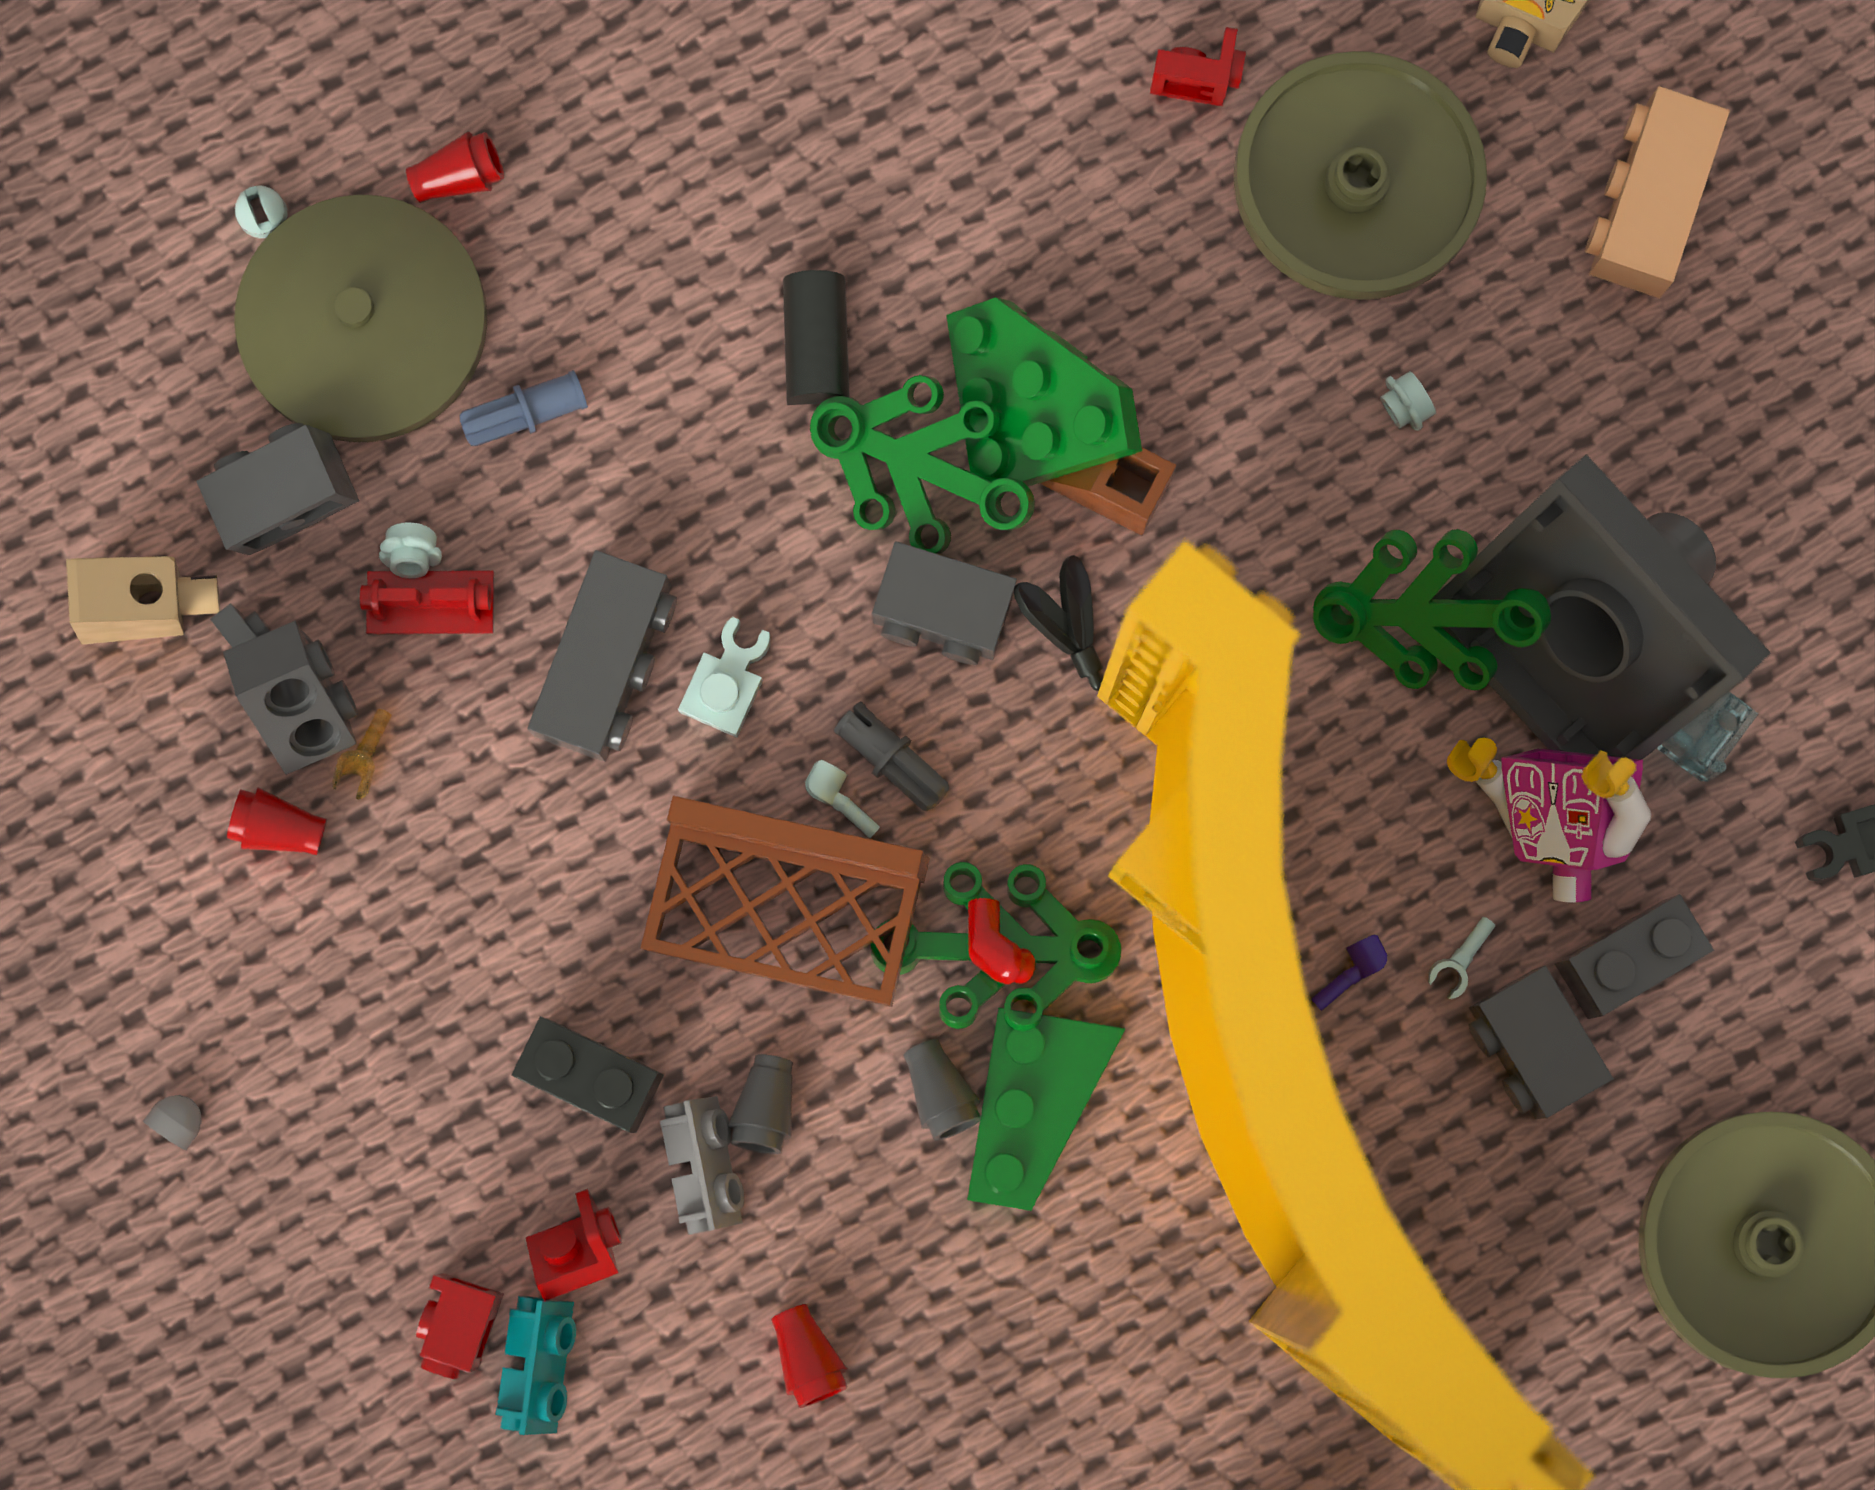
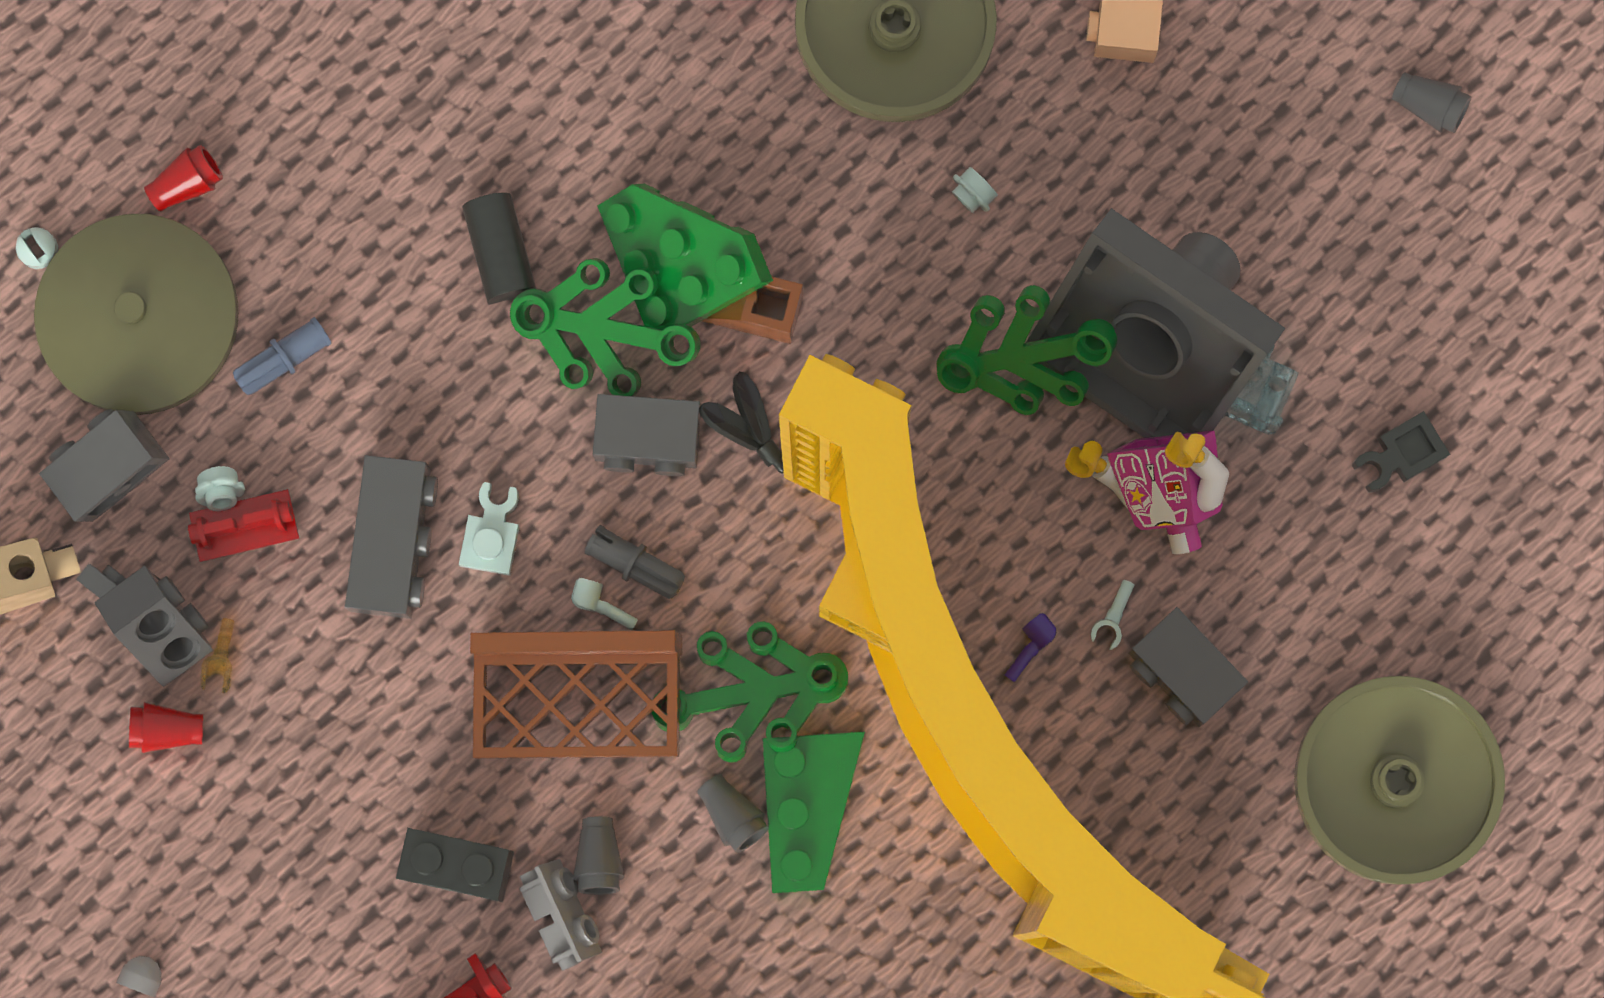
camera: 10 degrees left, 0 degrees up
(992, 950) = (748, 695): red arm -> none
(1634, 957) = (1245, 584): dark grey brick -> none

